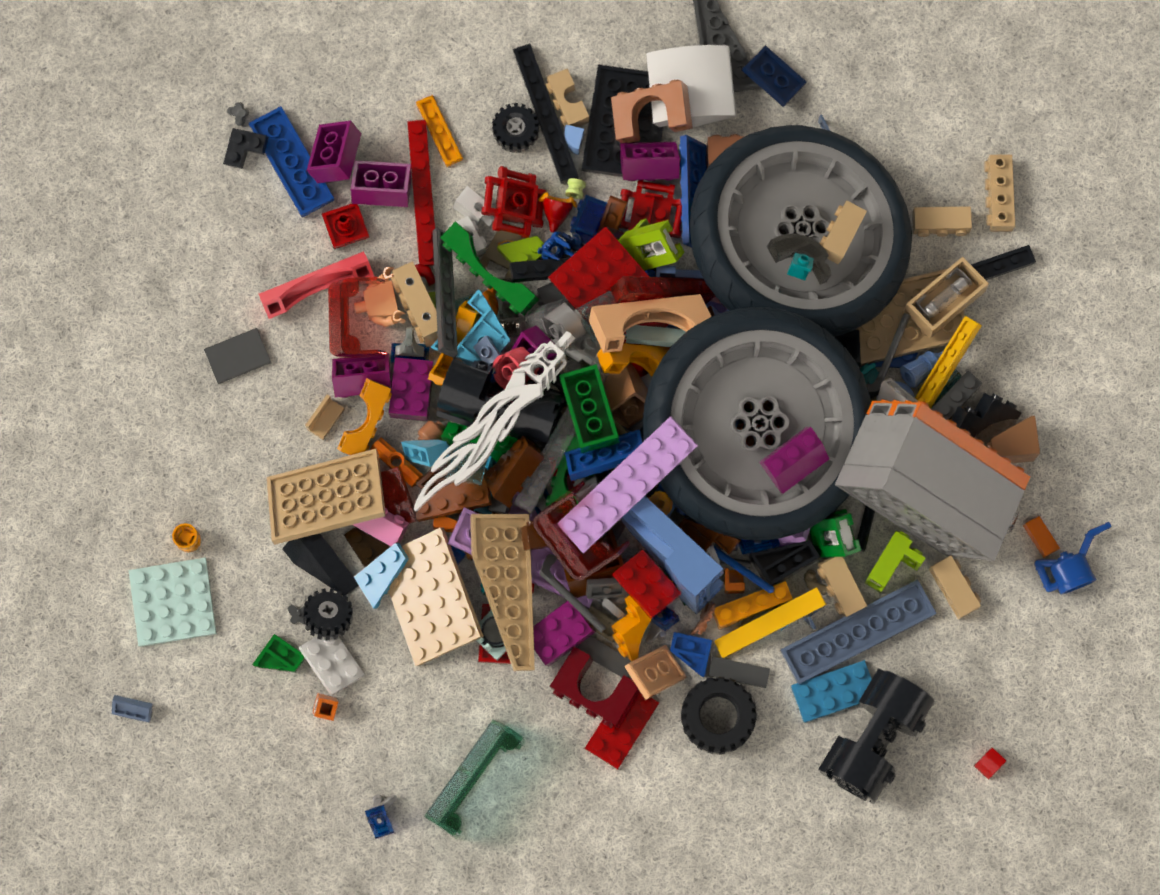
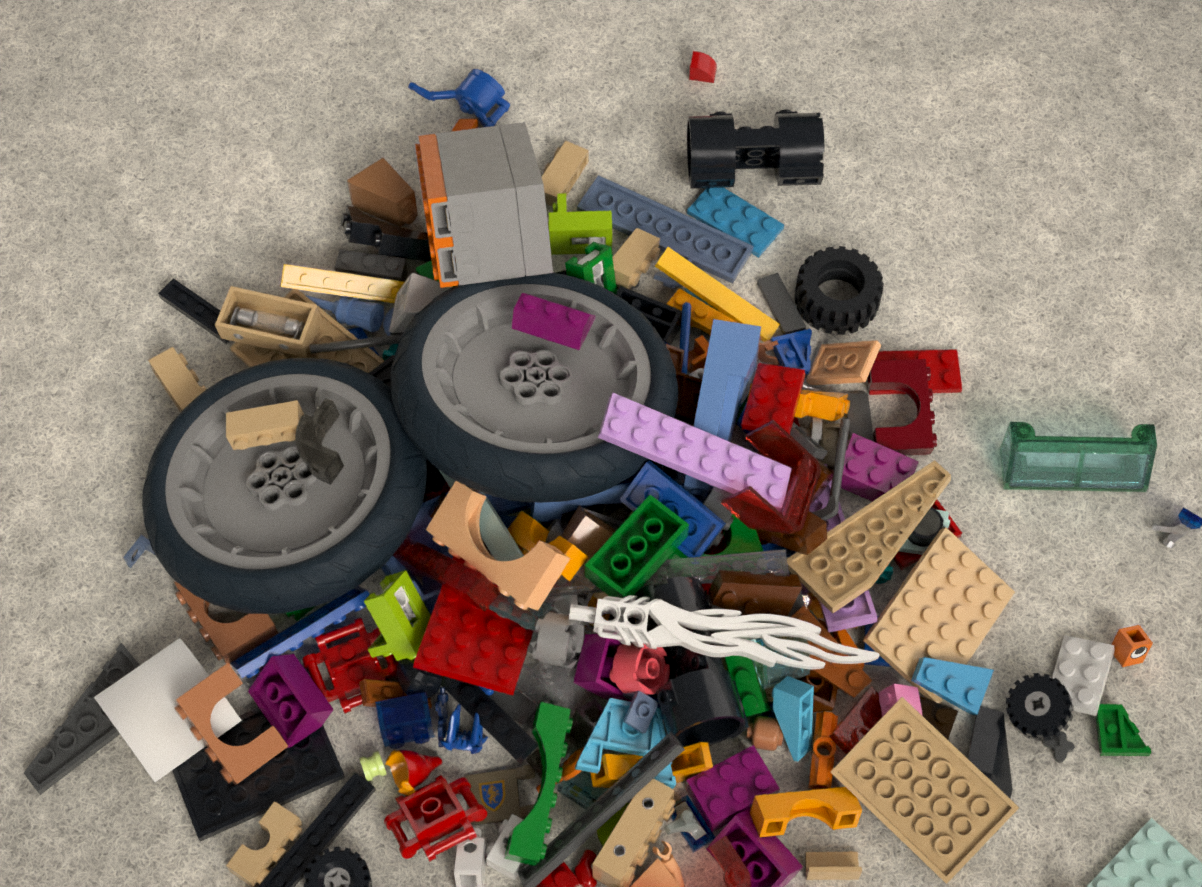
camera: 125 degrees left, 15 degrees down
(521, 250) = (488, 773): lime wing -> none
(574, 138) = (310, 805): light blue brick -> none
(774, 76) = (102, 635): dark blue plate -> none
(800, 266) = (334, 432): teal bracket -> none
(811, 582) = (647, 286): dark tan arm -> none
(1000, 193) = (113, 347): tan brick -> none

